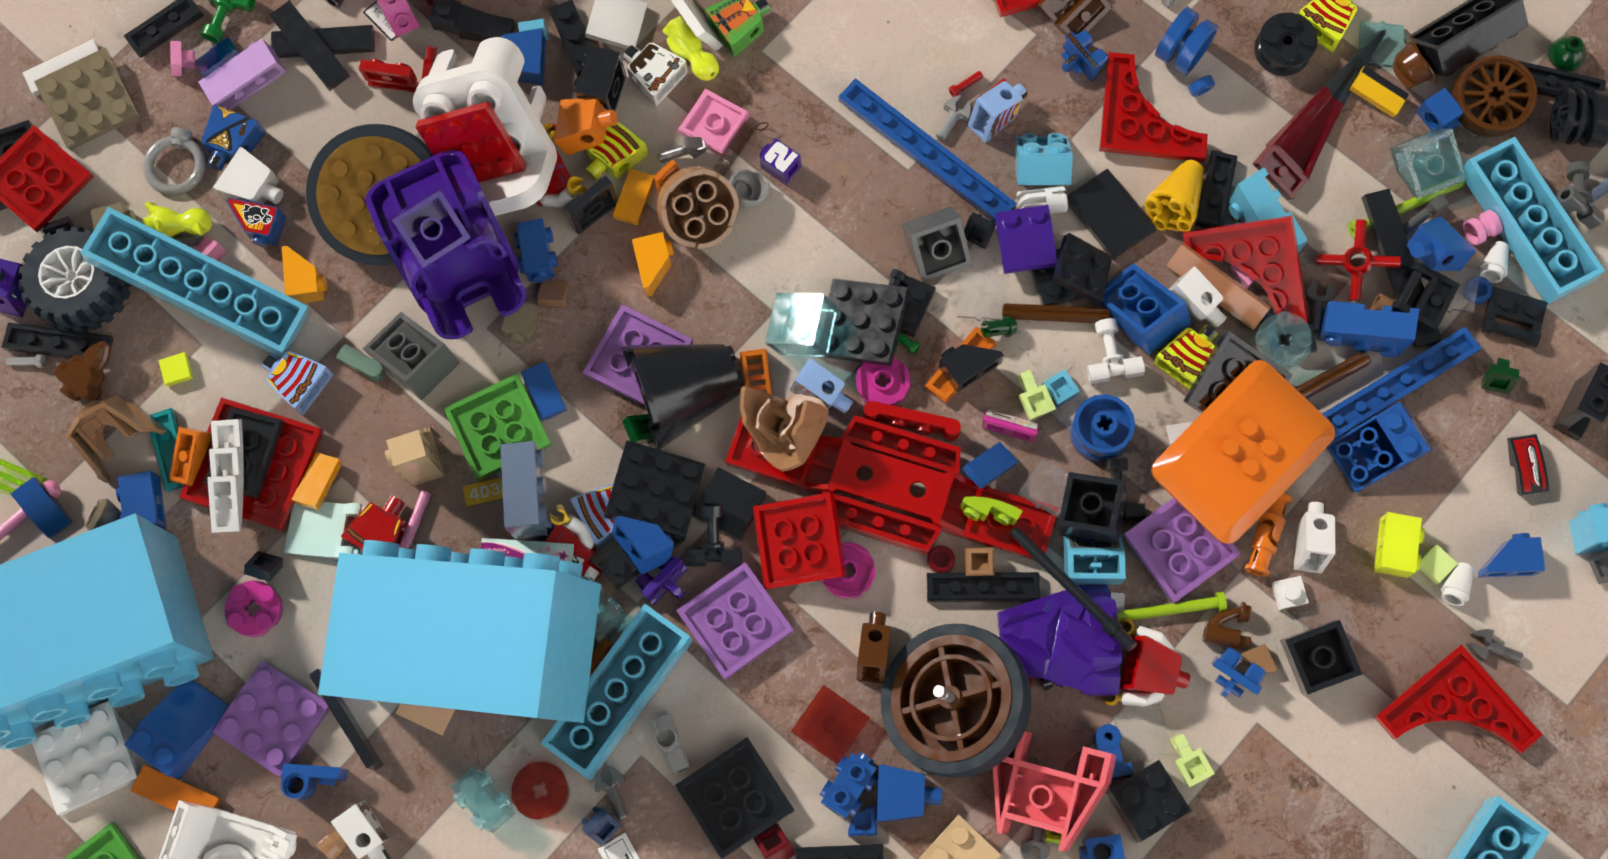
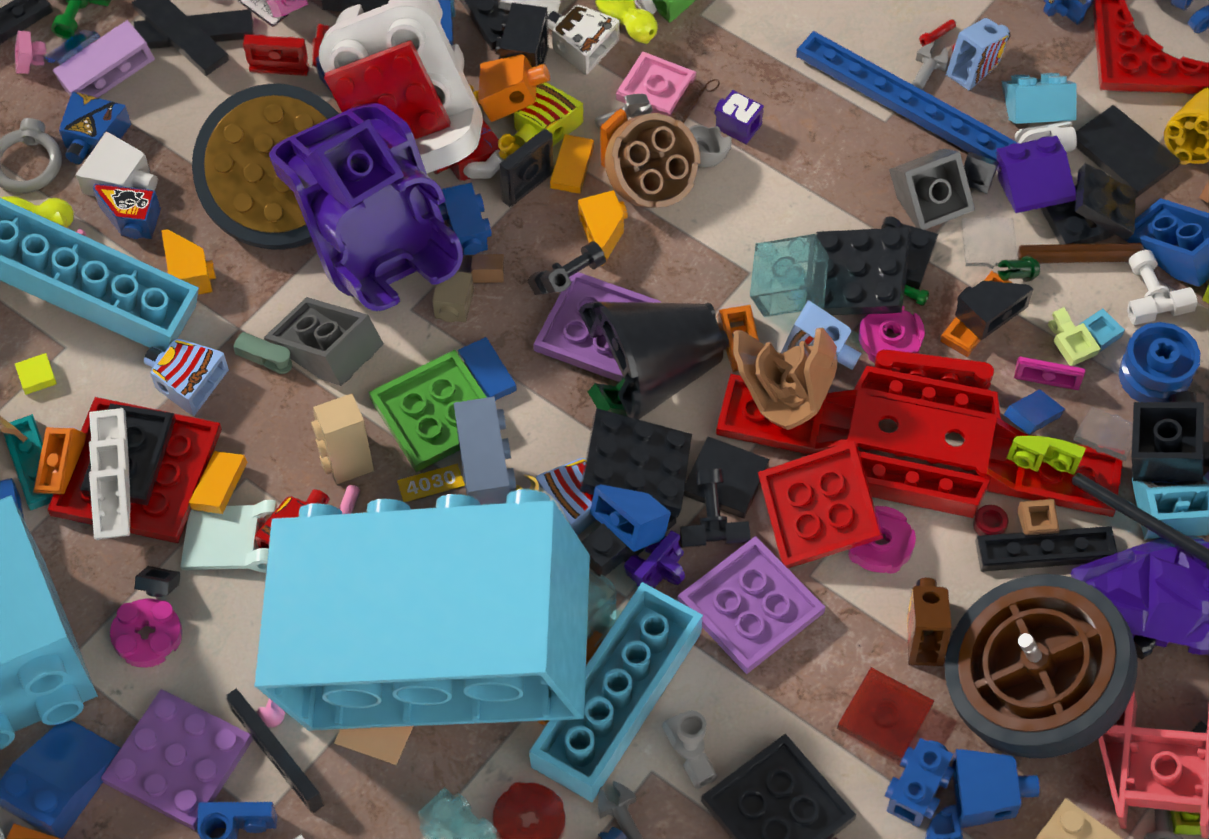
camera: 10 degrees left, 15 degrees down
(602, 316) = (558, 278): none -> black bar

